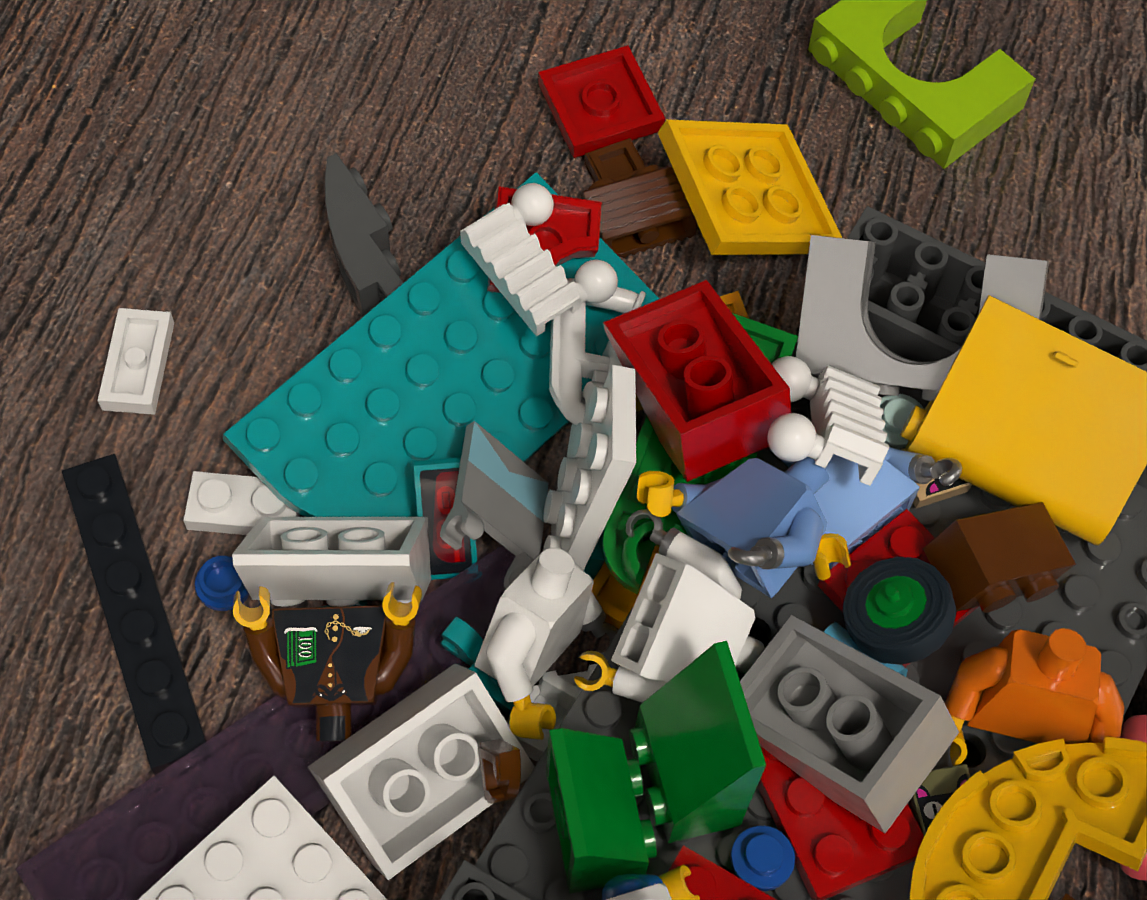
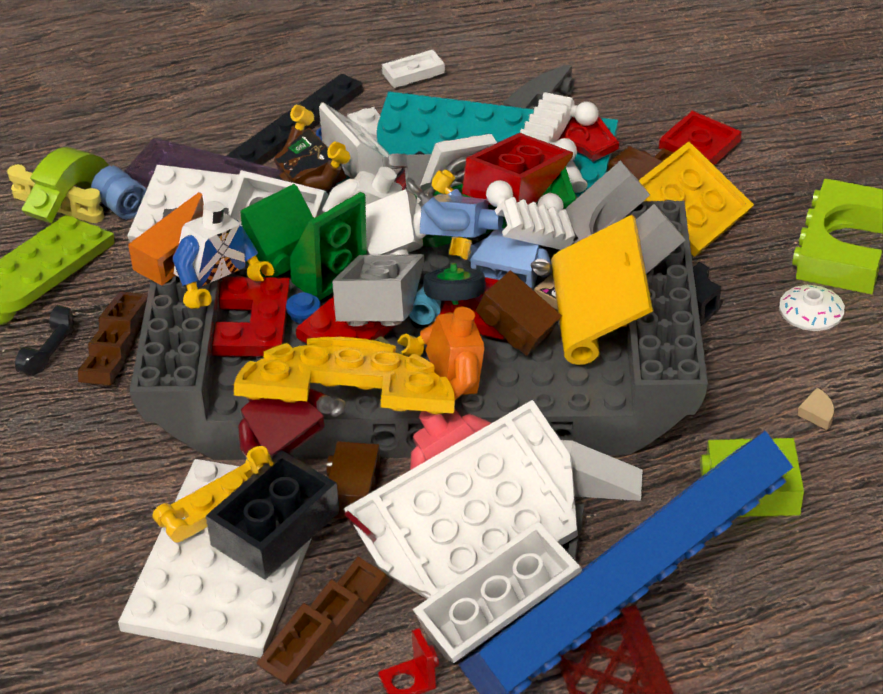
camera: 65 degrees right, 20 degrees down
(1011, 200) = (811, 308): none -> white dish

